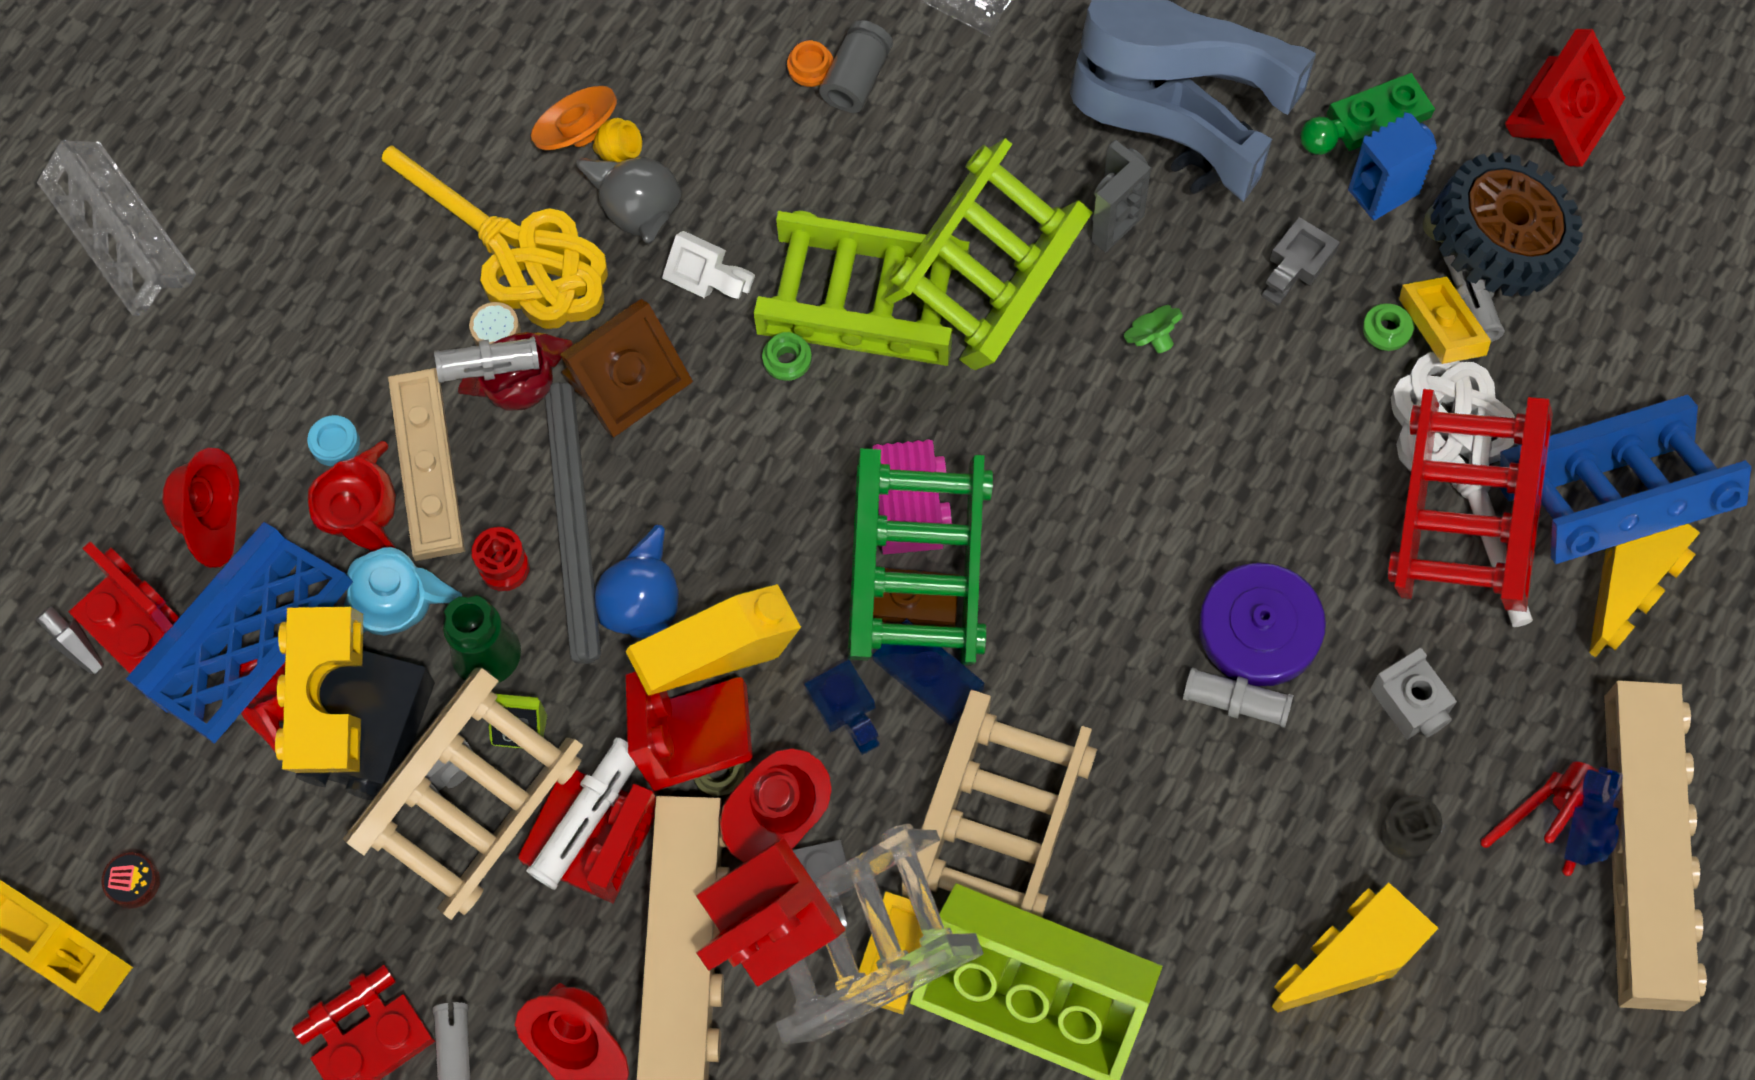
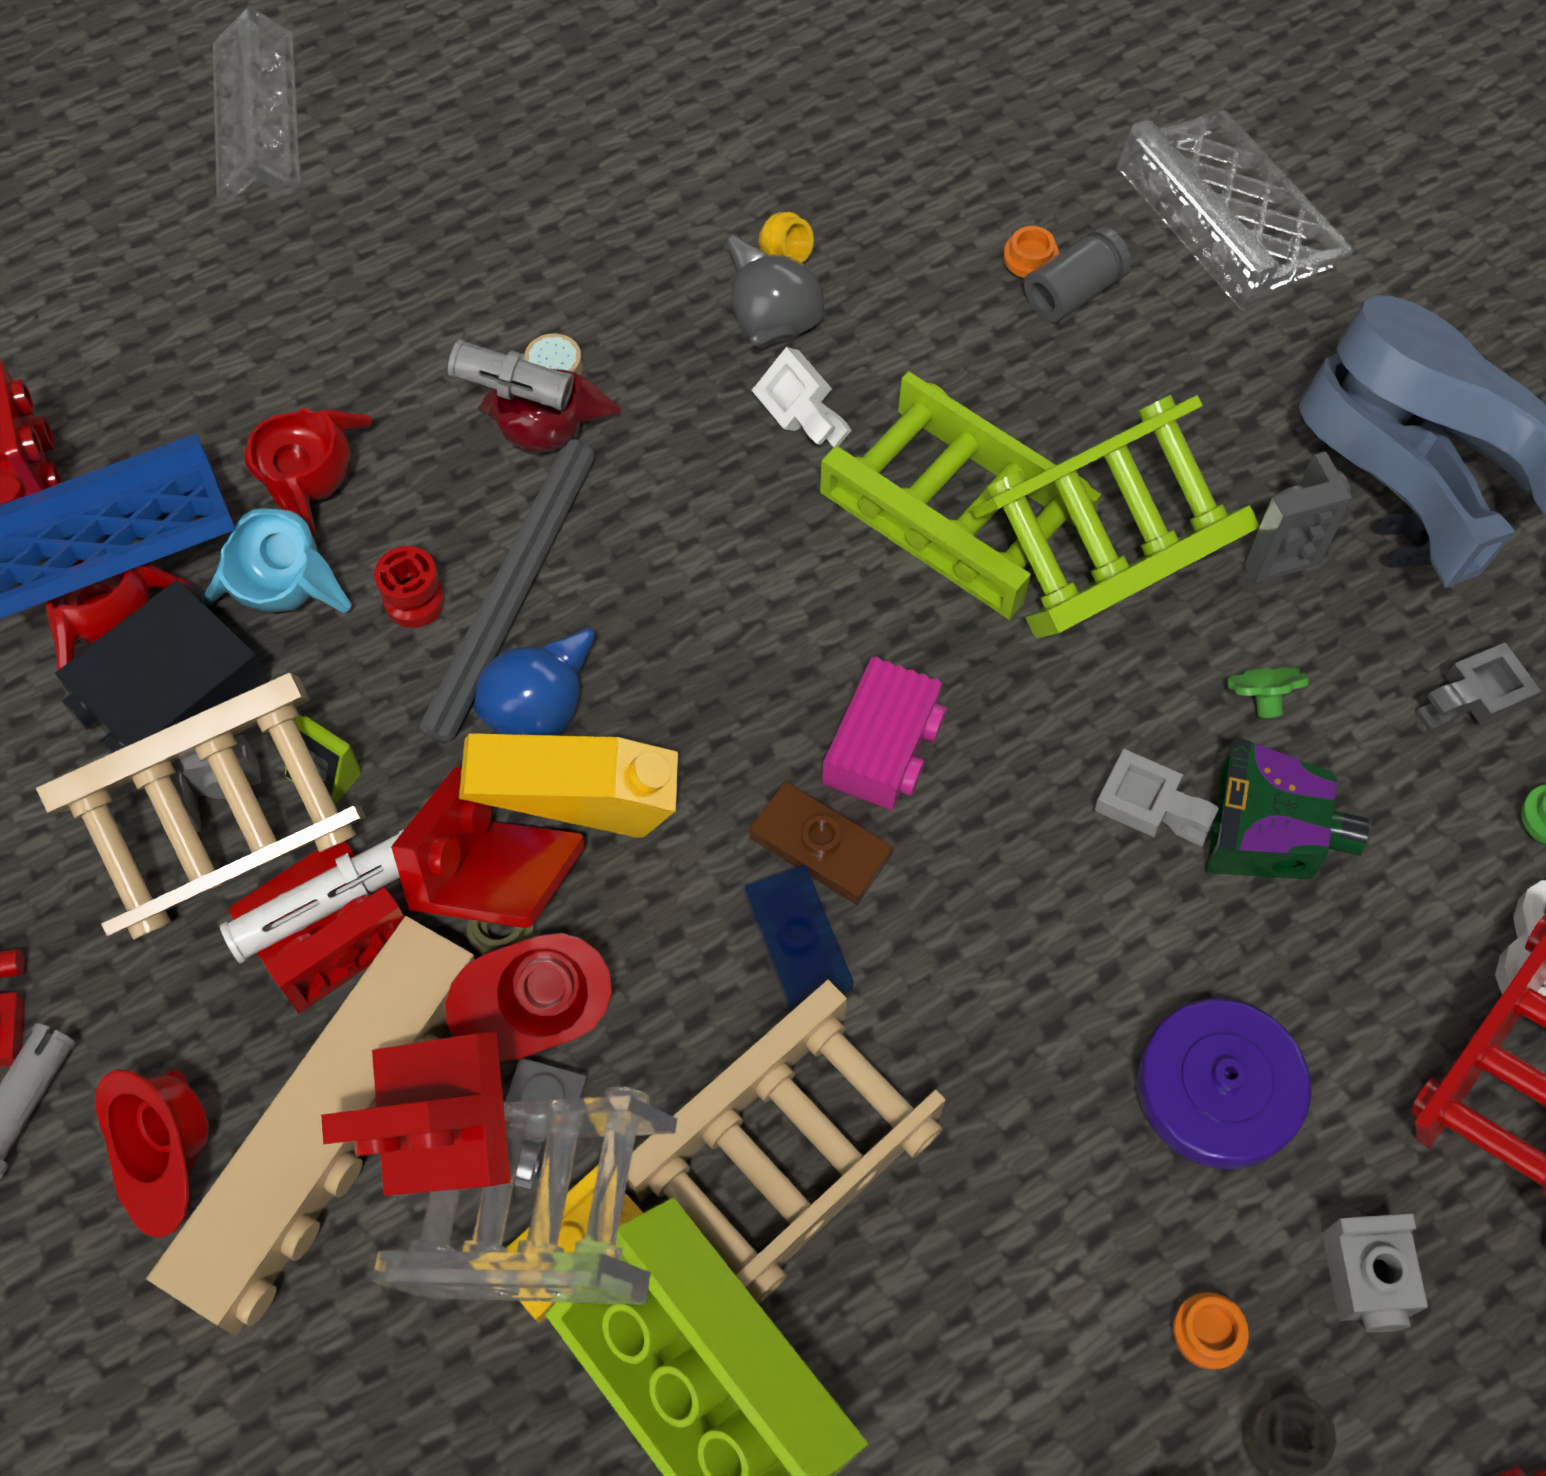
camera: 25 degrees right, 5 degrees down
(203, 505) = (155, 392): red piece -> none
(314, 645) = (137, 570): yellow arch -> none
(333, 440) = (326, 390): medium azure tile -> none
(426, 465) = (399, 463): tan tile -> none
(480, 639) = (330, 654): dark green plant -> none
(537, 250) = (651, 304): yellow piece -> none
(574, 118) = (753, 201): orange dish -> none
(625, 368) = (655, 454): reddish brown bracket -> none
(786, 343) = (837, 512): bright green plate -> none
(844, 701) = (681, 922): clear blue plate -> none
(872, 580) = (817, 744): green fence -> none
(1111, 451) = (1147, 794): none -> light grey plate
(1206, 421) = (1277, 816): none -> torso
(1238, 697) = (1149, 1156): light grey pin -> none
(1331, 788) = (1210, 1331): none -> orange plate

